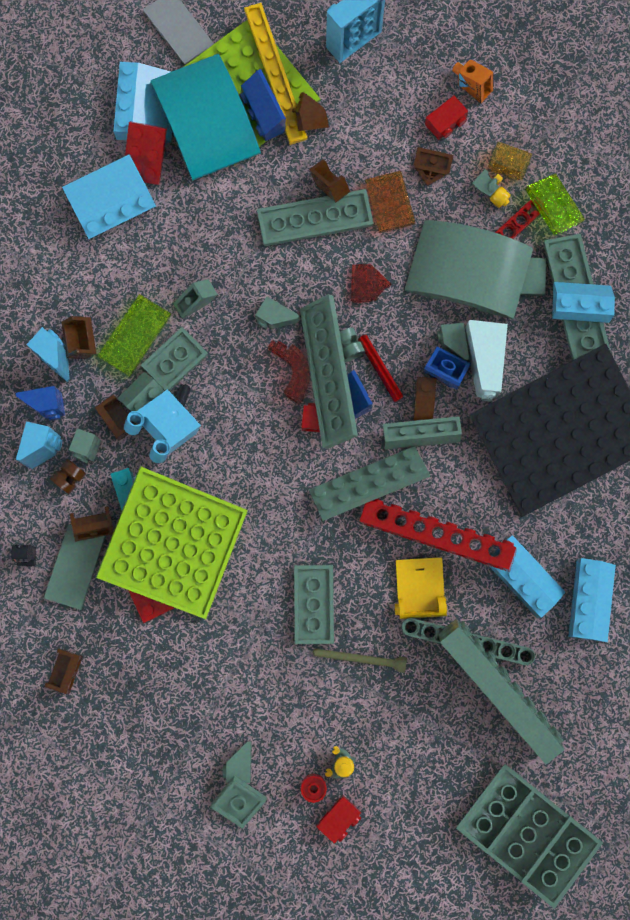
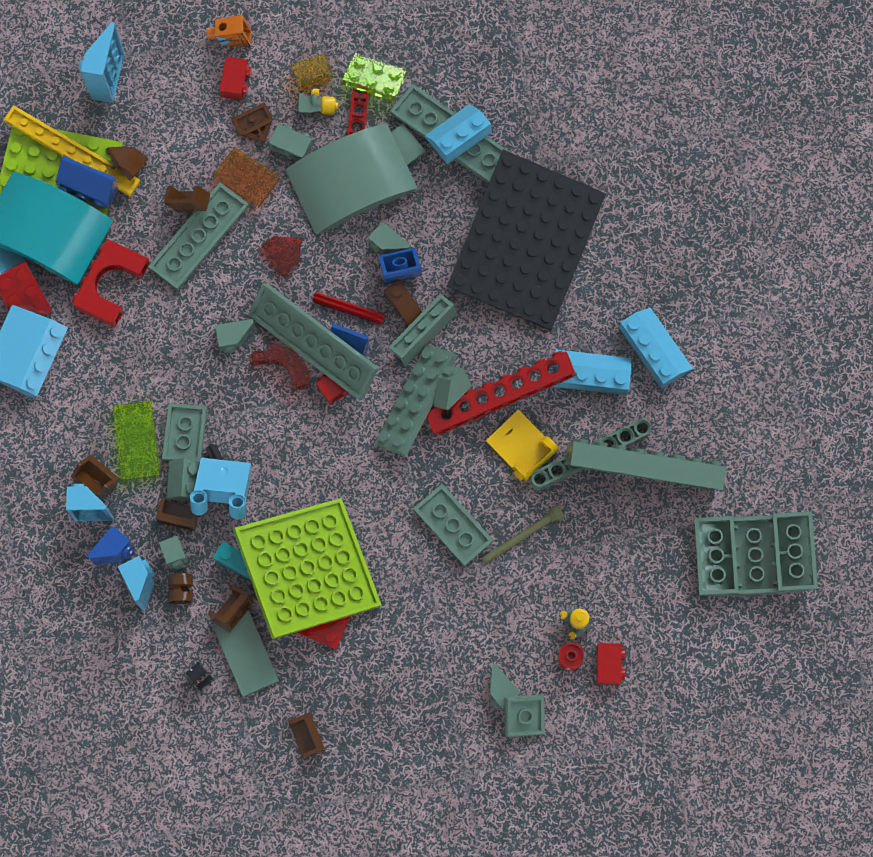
camera: 40 degrees left, 5 degrees down
(195, 297) = (159, 373): sand green slope -> none
(234, 179) = (111, 257): none -> red arch
(351, 347) = (314, 309): sand green wheel -> none
(403, 497) = (451, 387): none -> sand green slope
(446, 203) = (290, 143): none -> sand green brick
(486, 354) = (423, 232): light aqua slope -> none

